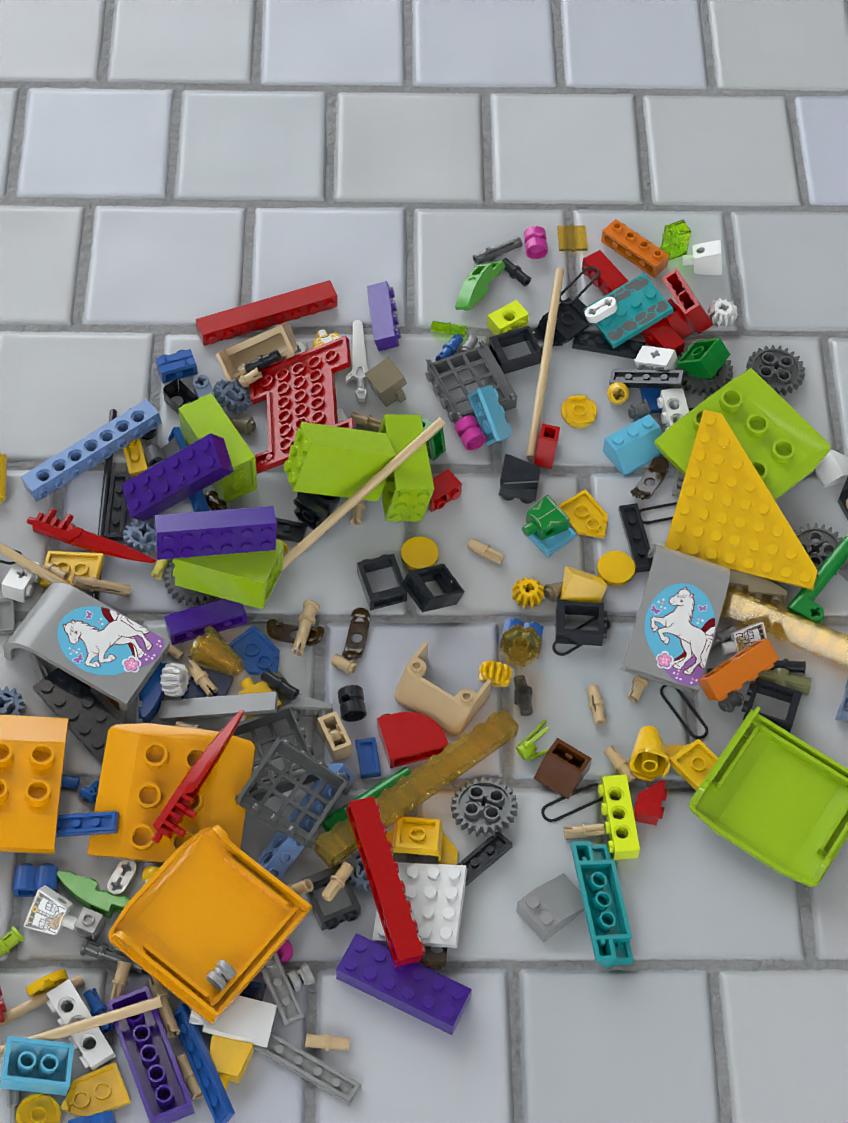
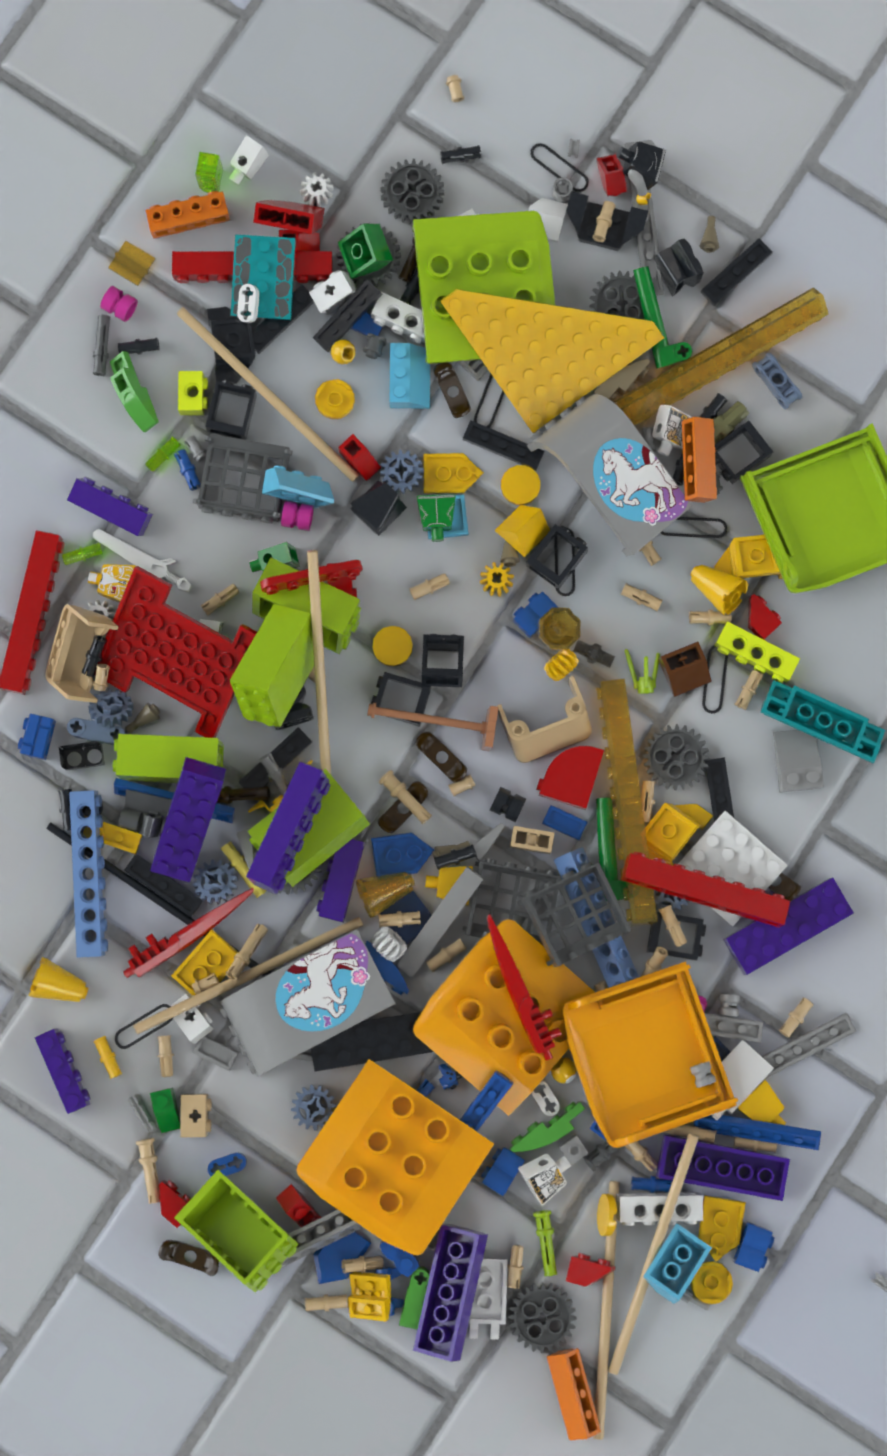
camera: 55 degrees left, 25 degrees up
(335, 320) = (82, 553): none -> clear neon green axle
(387, 382) = (193, 555): dark tan plate -> none
(401, 650) = (486, 728): none -> nougat tile
(431, 448) = (295, 579): none -> red piece
(431, 807) = (647, 787): none -> tan pin
(559, 481) = (410, 471): none -> sand blue gear
(594, 268) = (210, 296): black piece -> none
(830, 385) = (460, 154): none -> black pin

